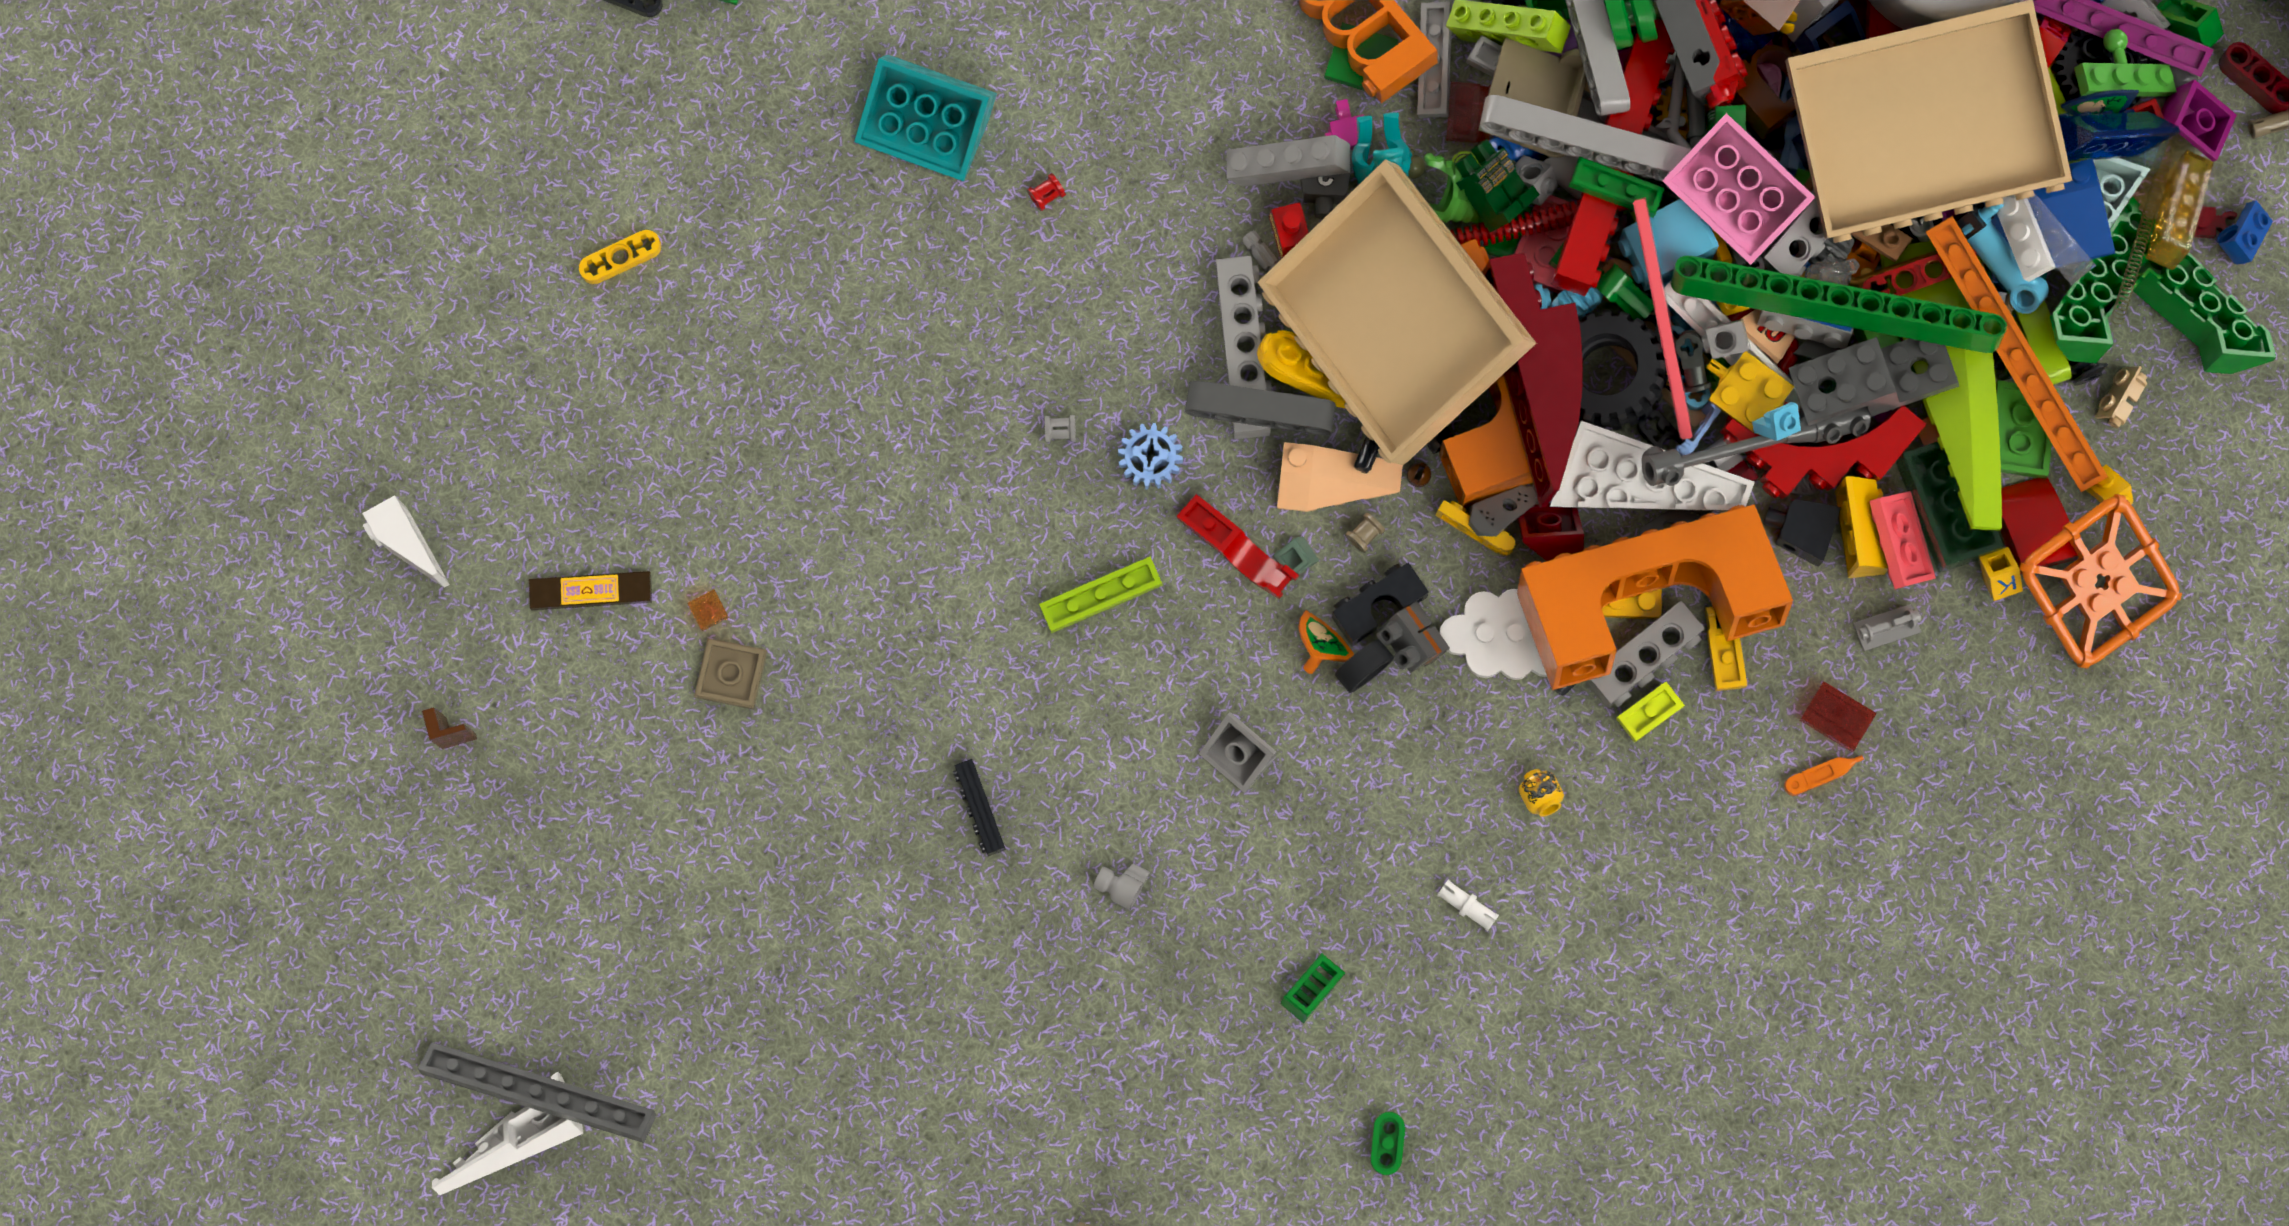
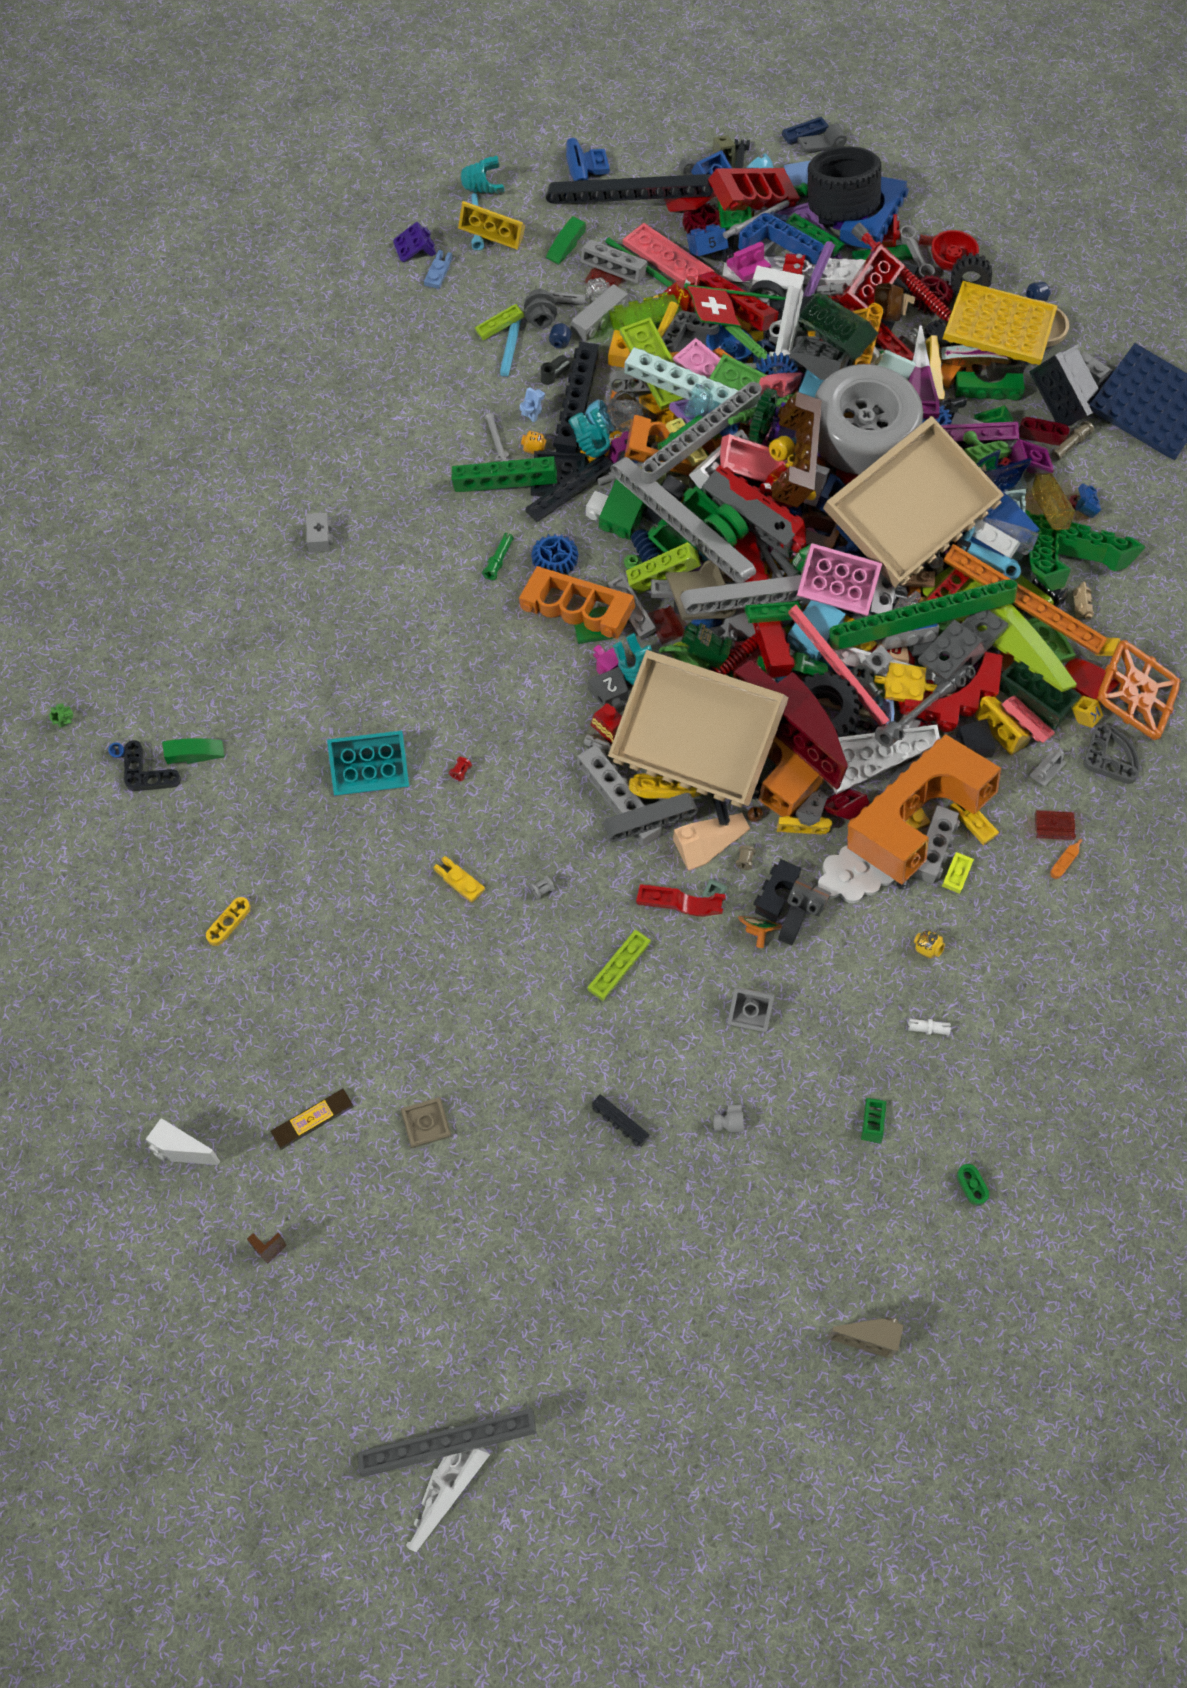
camera: 35 degrees left, 15 degrees down
(708, 610) = (391, 1092): clear orange plate -> none
(957, 360) = (460, 880): none -> yellow hinge
(1162, 456) = (597, 882): light blue gear -> none
(1288, 161) = (587, 686): light grey brick -> none
(1778, 422) = (932, 687): medium azure bracket -> none
(1976, 658) = (1102, 761): none -> dark grey beam
(2132, 250) = (1047, 522): olive piece -> none

